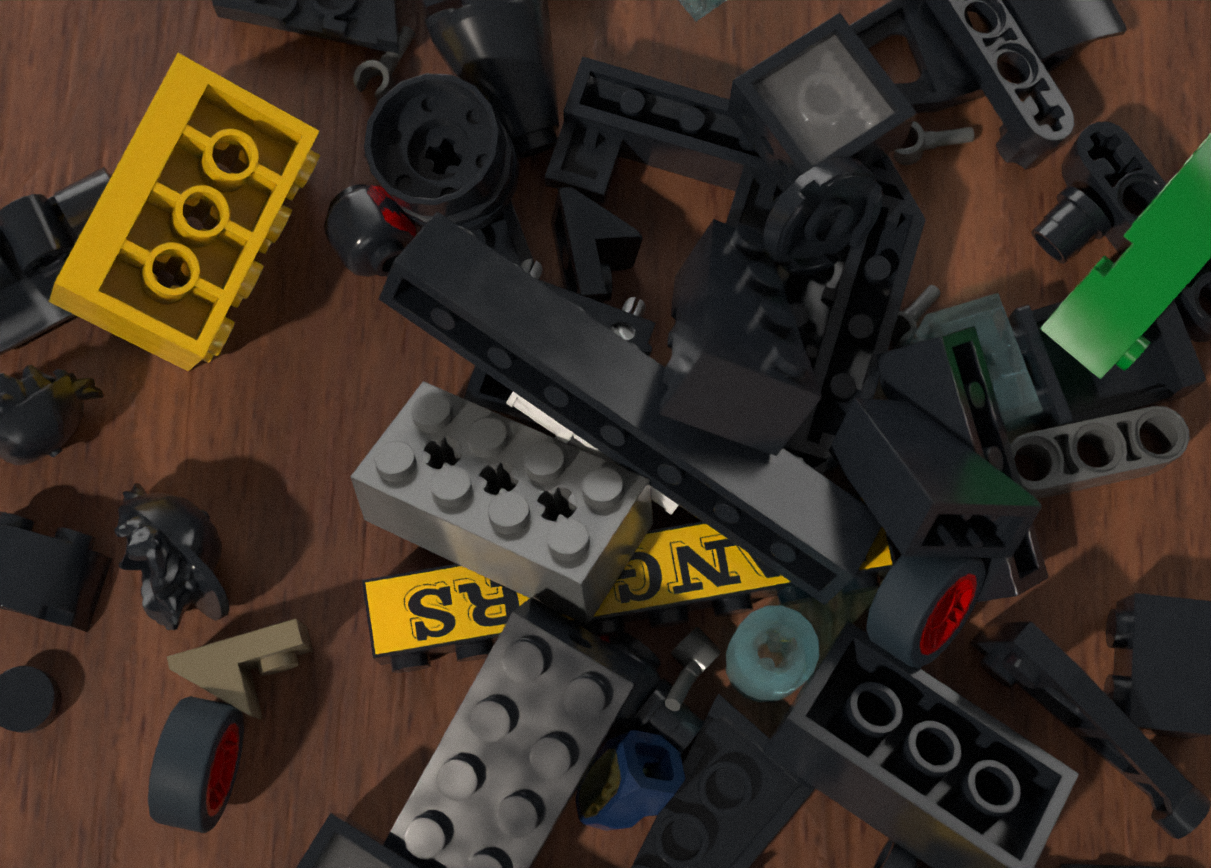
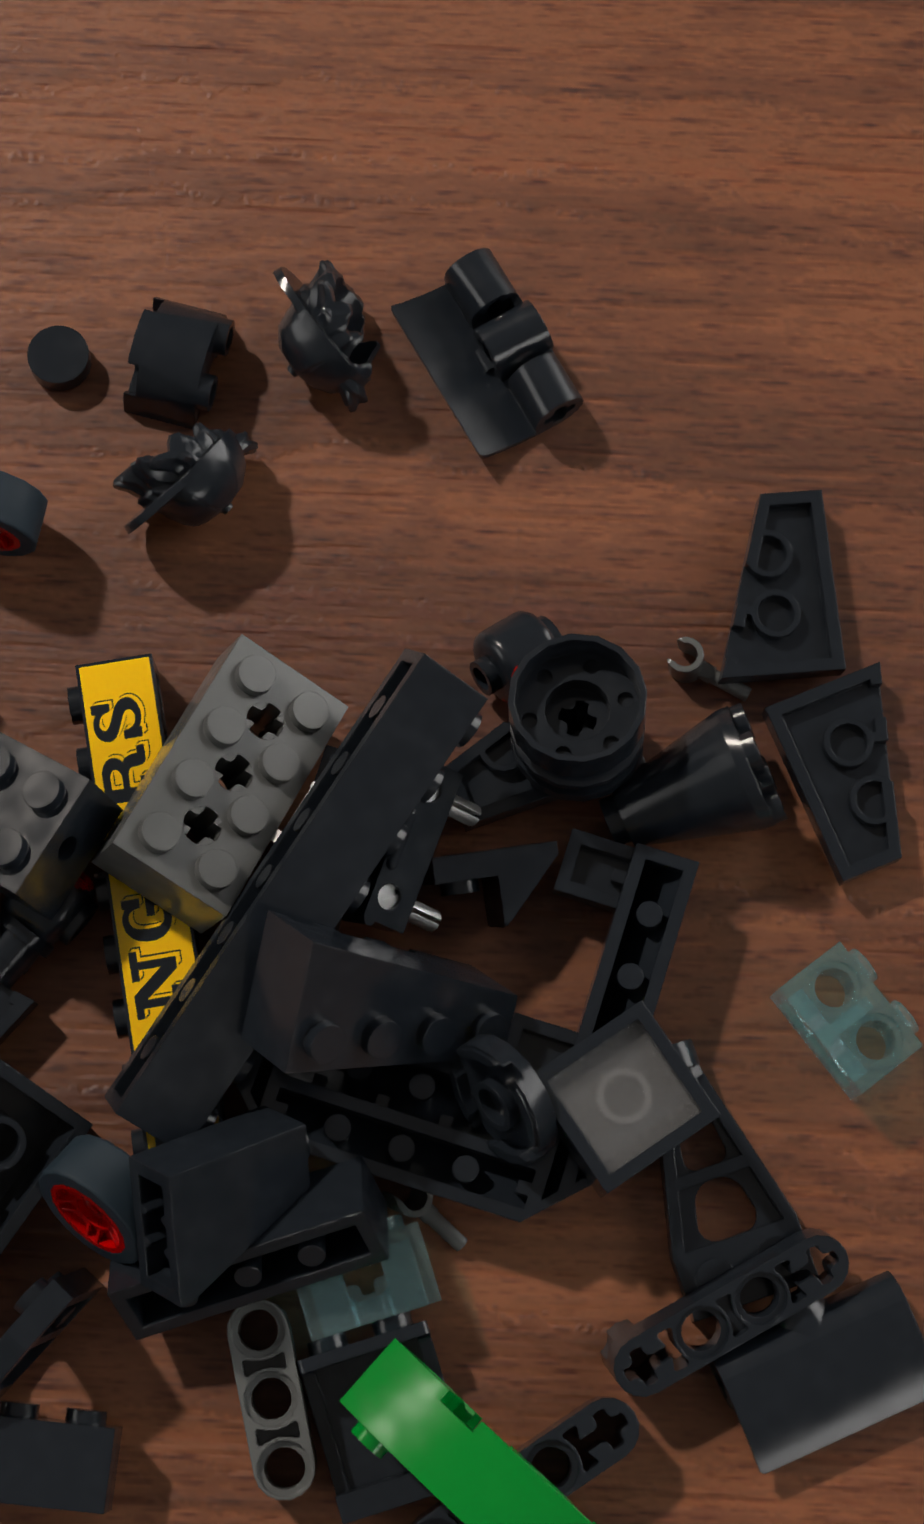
camera: 85 degrees right, 0 degrees up
(160, 183) = (499, 430): yellow brick -> none
(226, 665) = (75, 537): dark tan slope -> none
(695, 655) = (77, 982): dark grey hand -> none
(783, 632) = (42, 1033): clear light blue piece -> none
(930, 140) = (632, 1246): dark grey hand -> none
(1070, 225) = (529, 1393): black piece -> none

